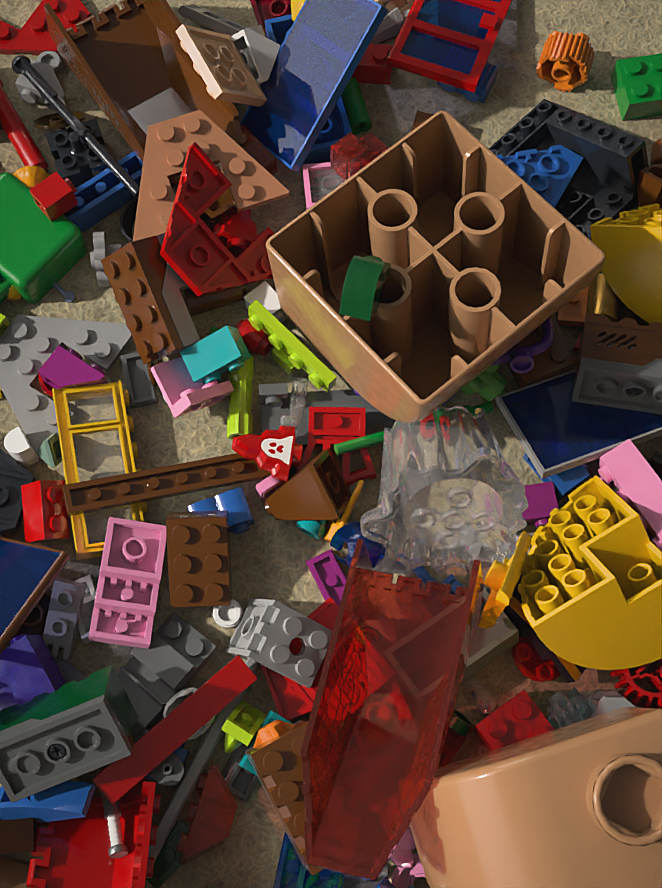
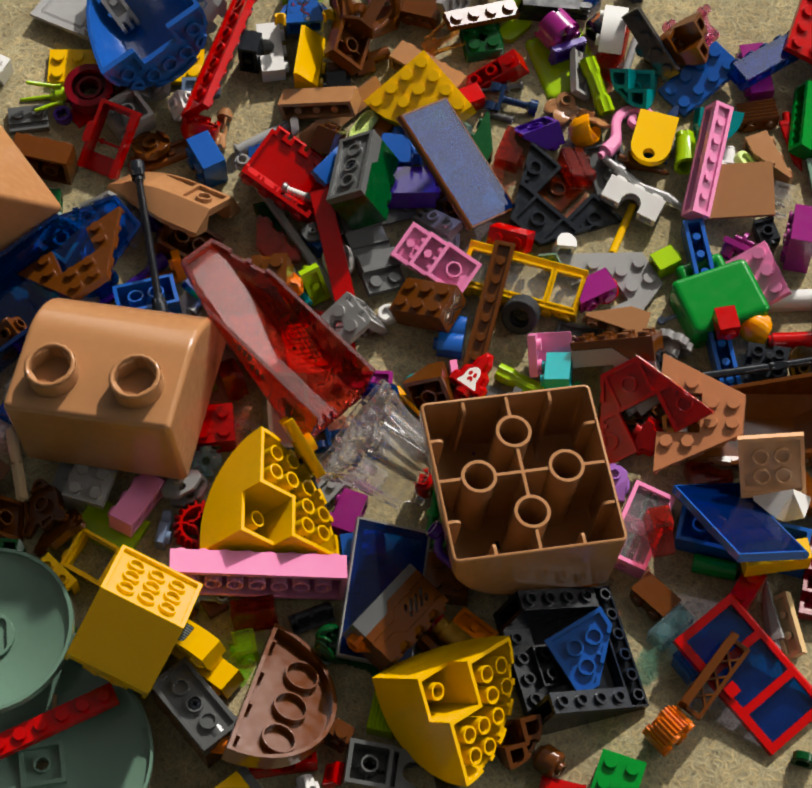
camera: 120 degrees right, 10 degrees down
(99, 325) = (618, 319): none -> medium nougat slope
(151, 443) = (518, 326): none -> black tyre
(363, 287) = (518, 407): dark green brick -> none
(461, 108) = (670, 628): none -> clear light blue brick
(461, 723) = (241, 399): dark green tile -> none
(490, 37) = (710, 667): none -> reddish brown fence

